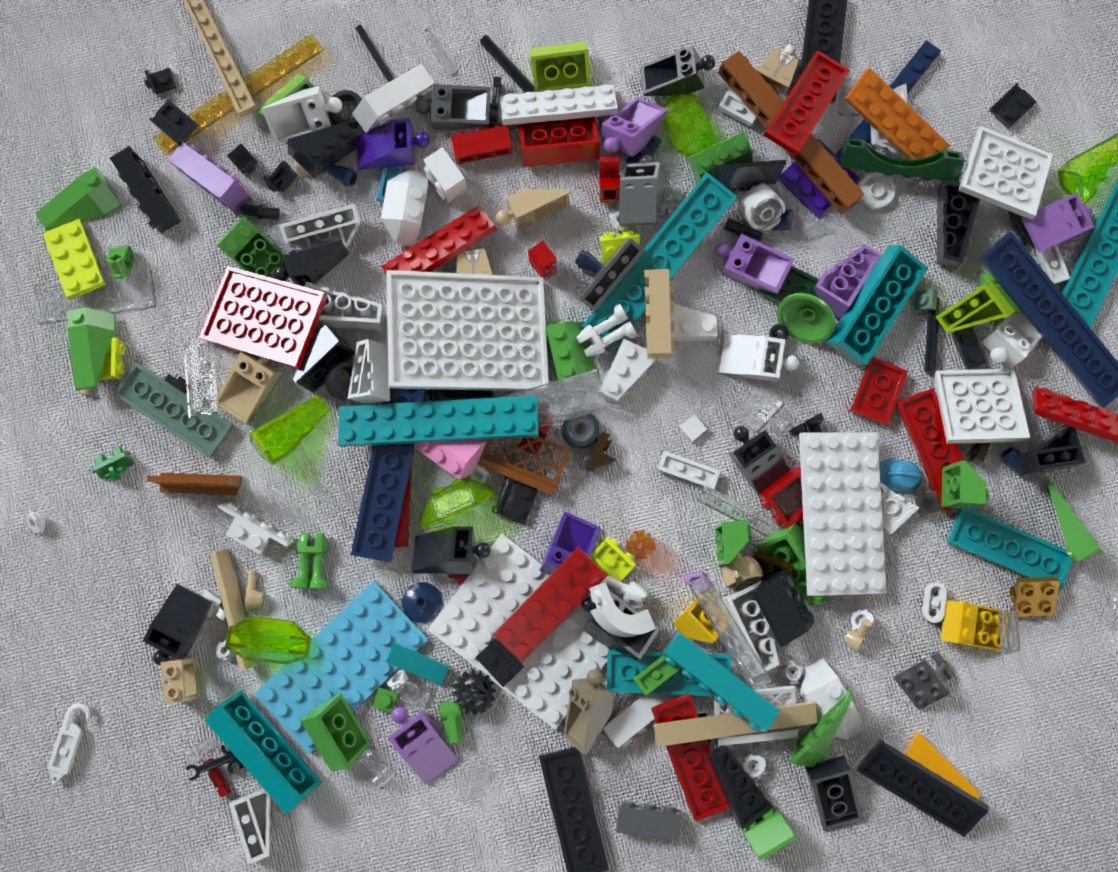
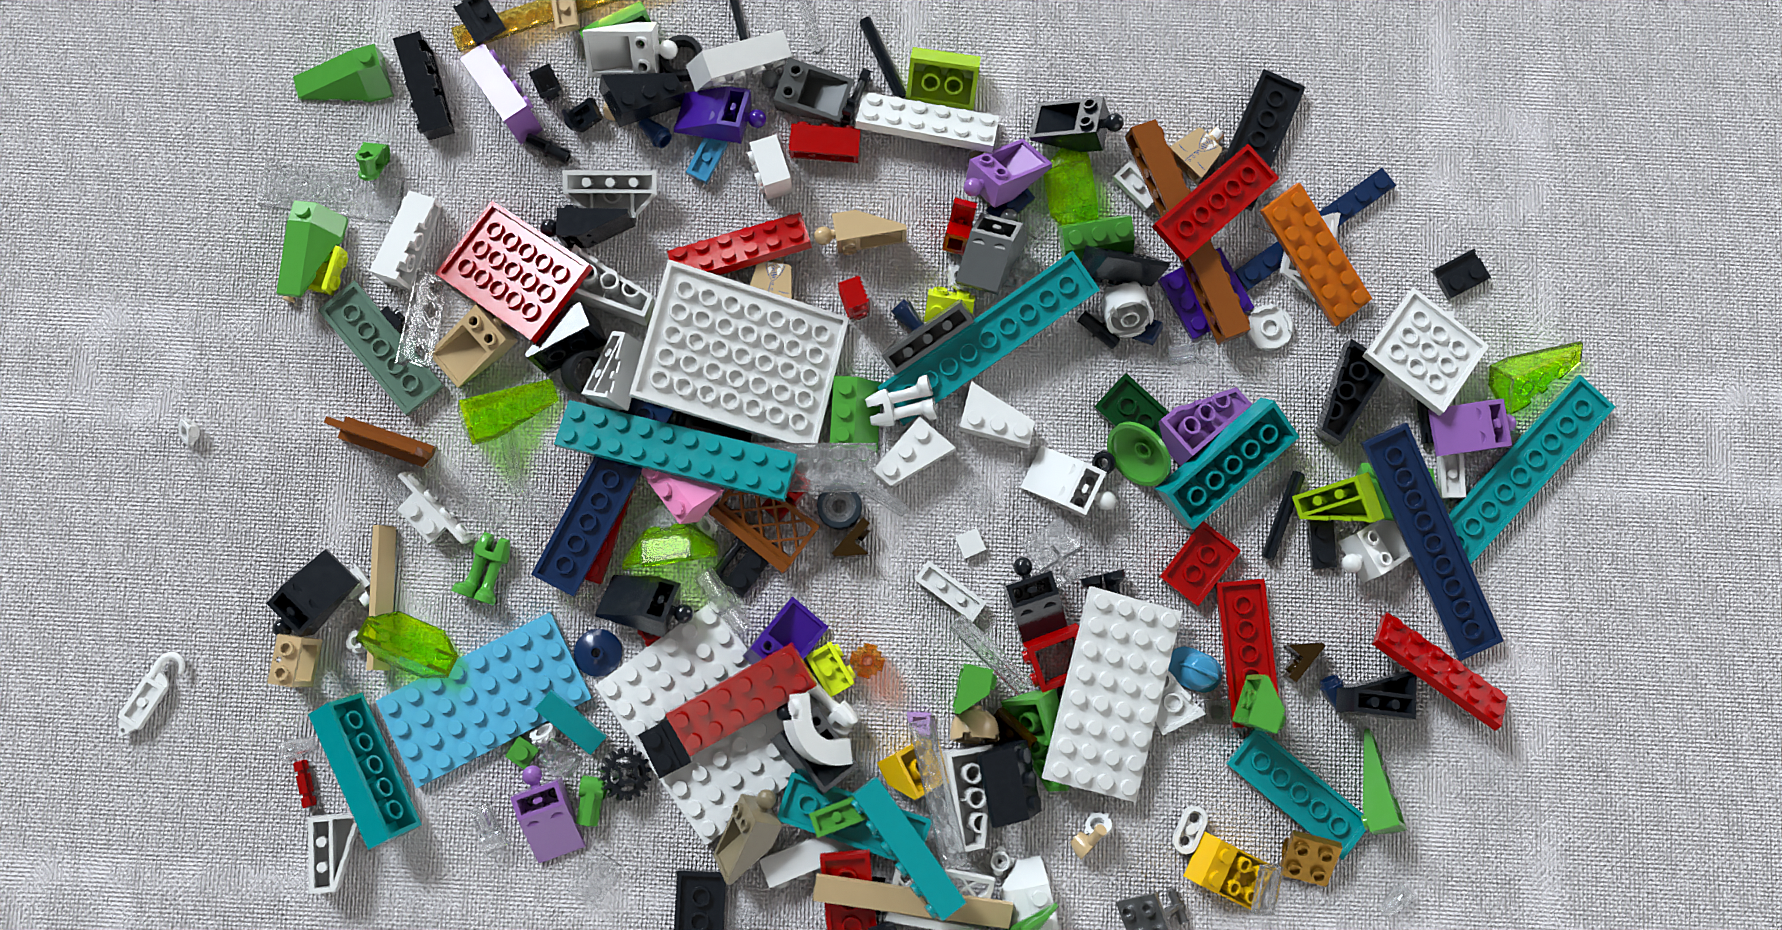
camera: 15 degrees right, 0 degrees up
(74, 259) = (320, 142): neon yellow plate -> none
(113, 466) = (293, 393): green hips -> none
(168, 318) = (406, 241): none -> white wedge
(228, 758) = (323, 765): black bar -> none
(250, 249) = (524, 188): bright green slope -> none
(253, 598) = (407, 591): tan bar -> none
(336, 733) = (454, 774): bright green slope -> none
(405, 206) = (714, 189): white wedge -> none
(510, 531) = (722, 601): none -> clear piece
(559, 141) = (915, 165): red slope -> none
(658, 314) = (967, 400): tan wedge -> none
(759, 266) = (1103, 375): medium lavender slope -> none
(926, 300) = (1288, 473): sand green plate -> none
(941, 165) = (1350, 321): dark green arch -> none
(981, 406) = (1313, 616): white plate -> none

